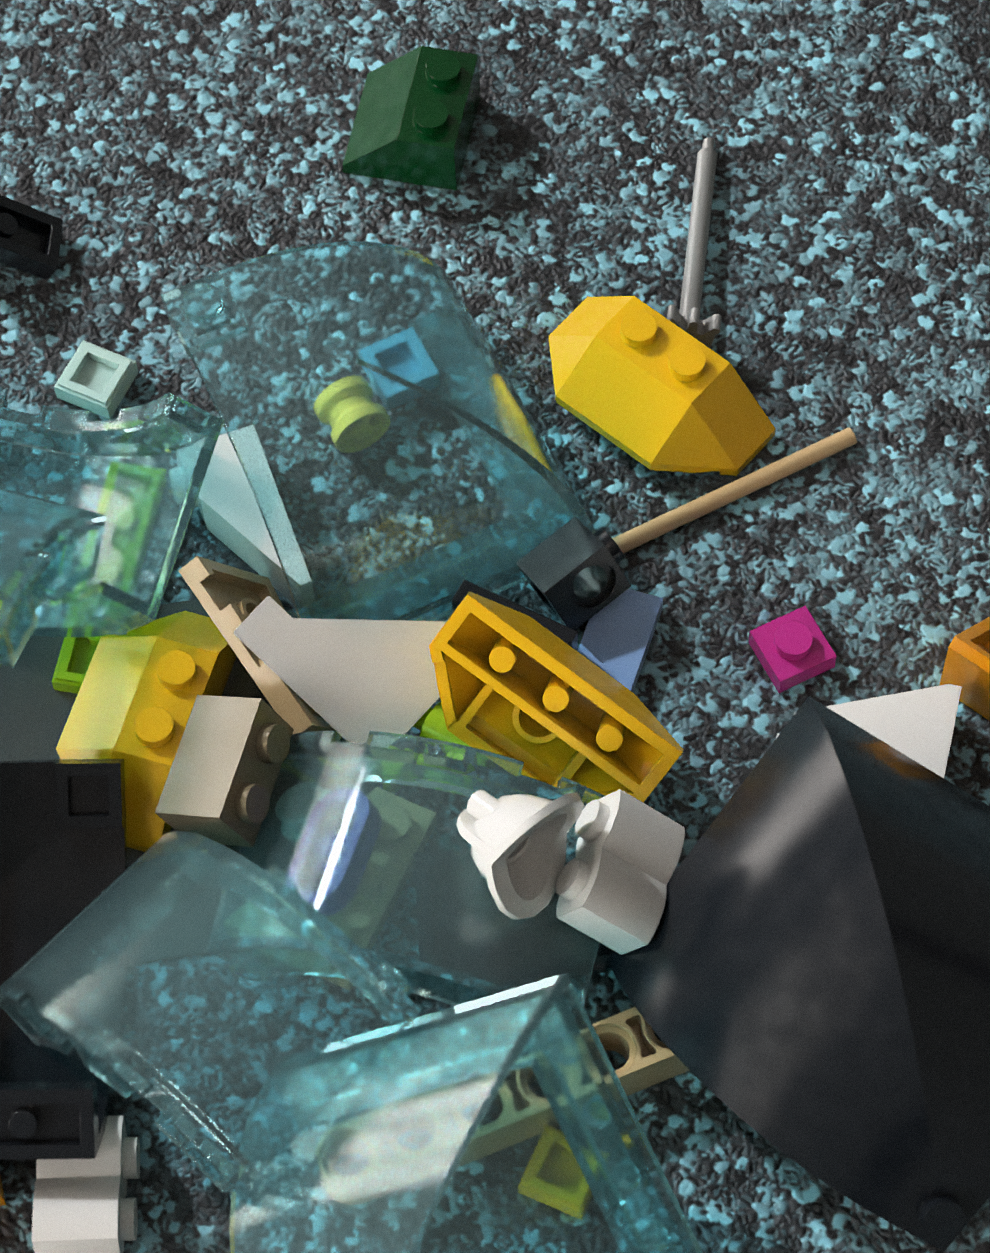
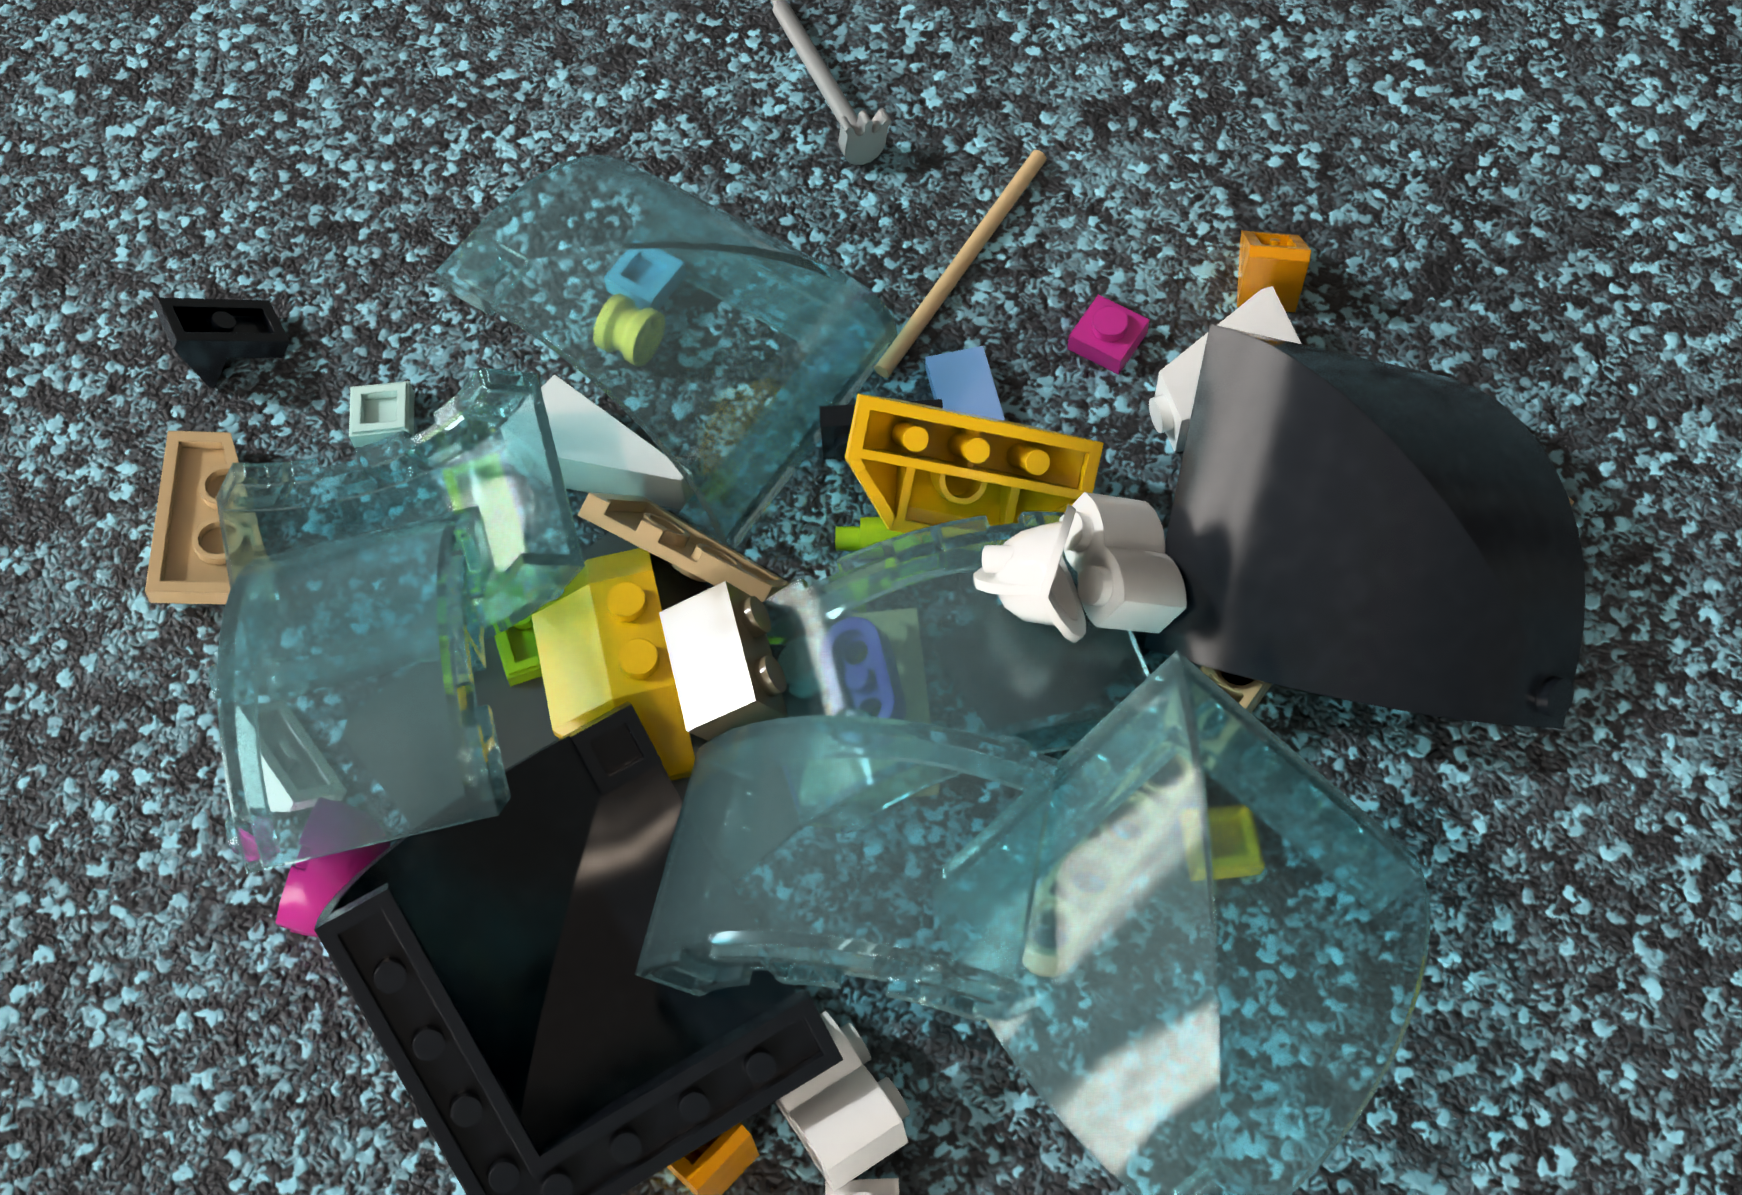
camera: 30 degrees left, 0 degrees up
(349, 670) = (779, 524): white sticker -> none
(416, 118) = (526, 83): dark green slope -> none
(575, 572) = (904, 356): black brick -> none
(655, 389) = (862, 189): yellow wedge -> none

